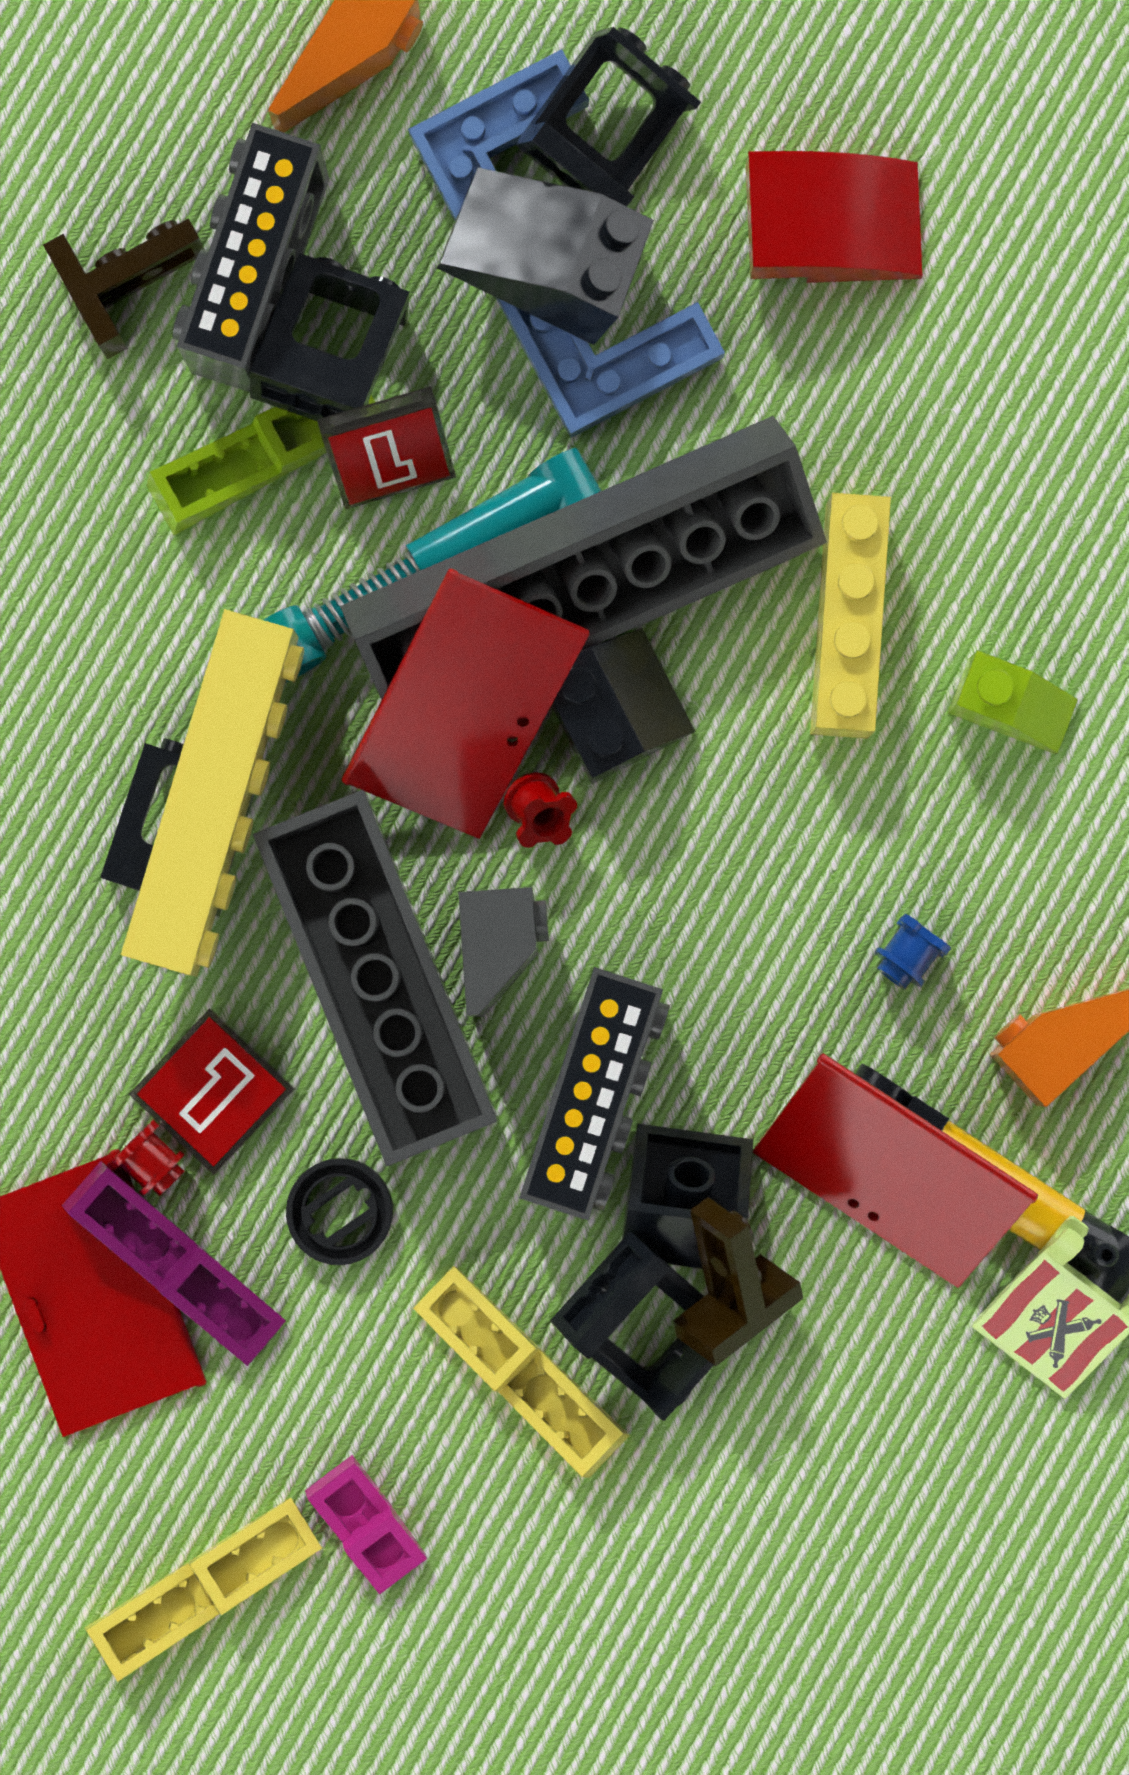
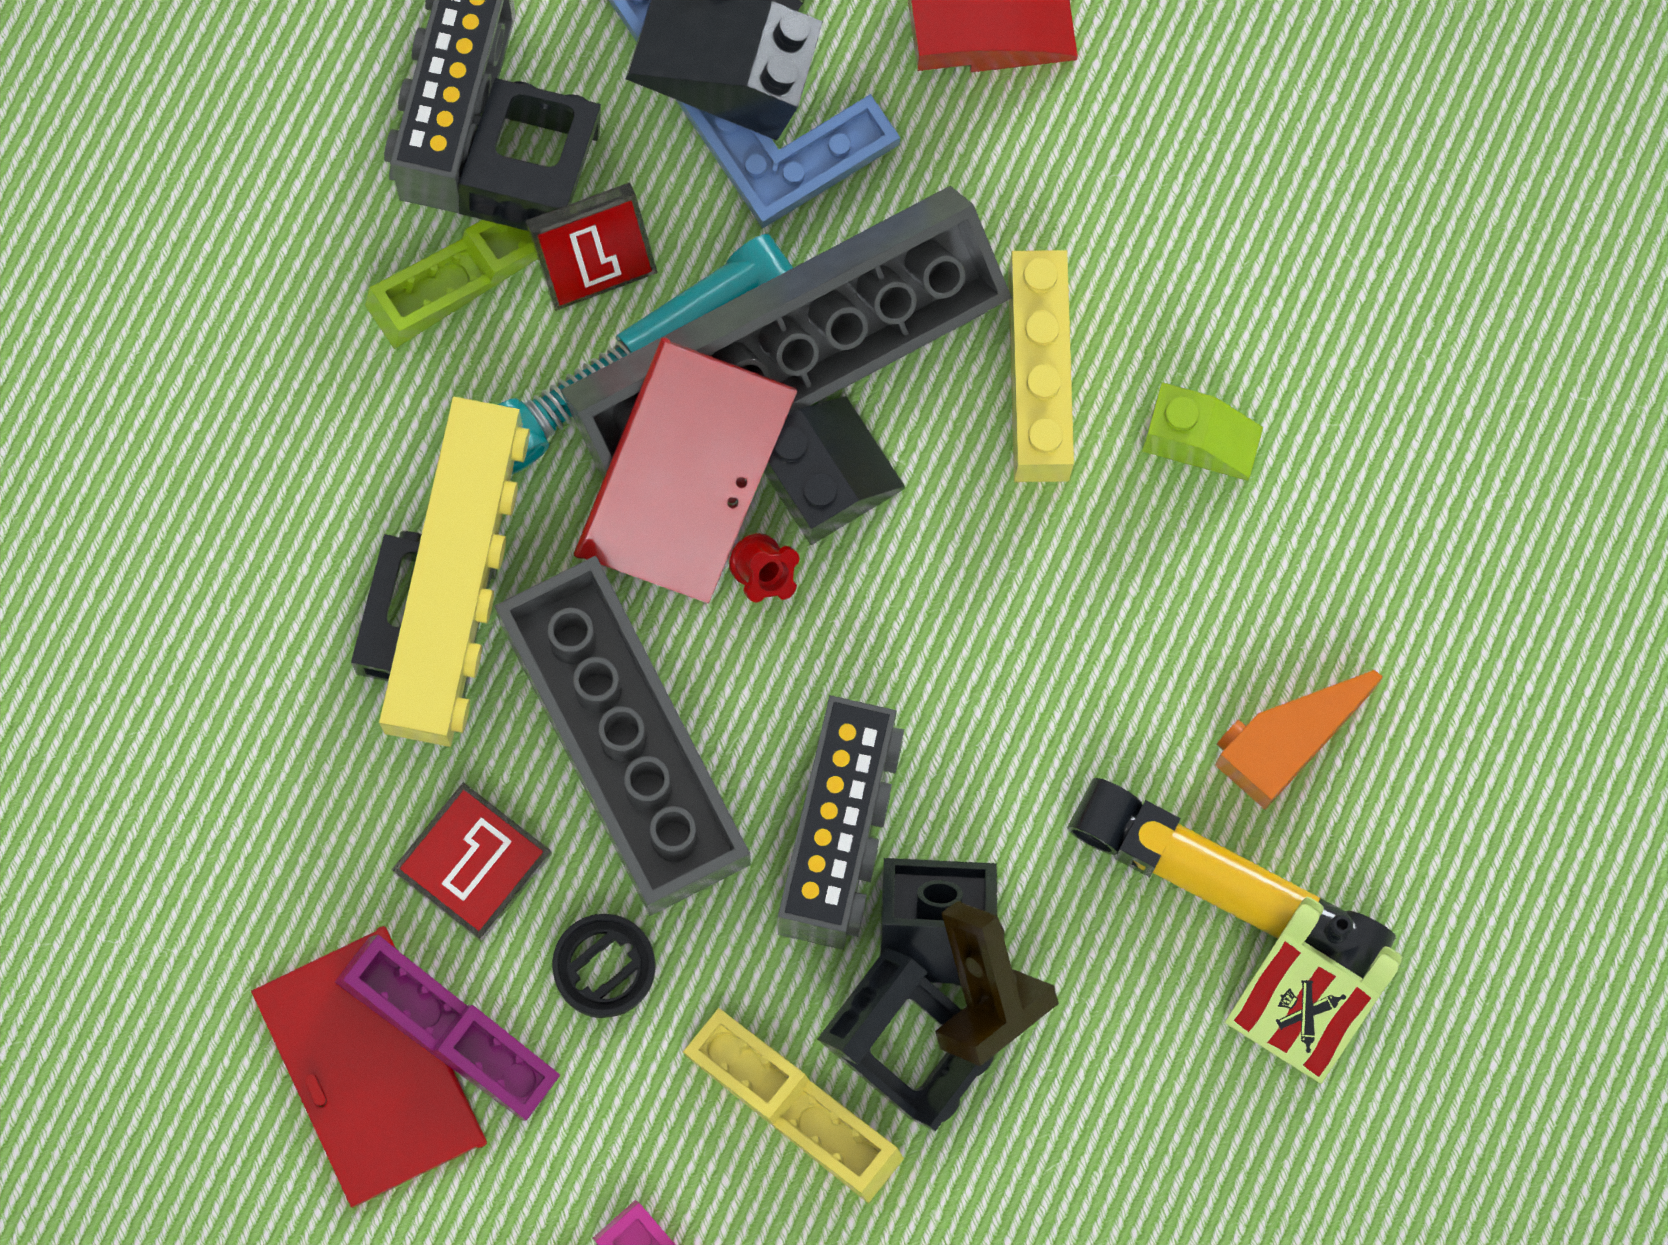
camera: 10 degrees left, 10 degrees down
(122, 274) = (328, 114): dark brown bracket -> none
(149, 1161) = (416, 929): red brick -> none
(498, 941) = (739, 680): dark grey slope -> none
(885, 1159) = (1106, 852): container -> none
(910, 953) = (1129, 671): blue brick -> none

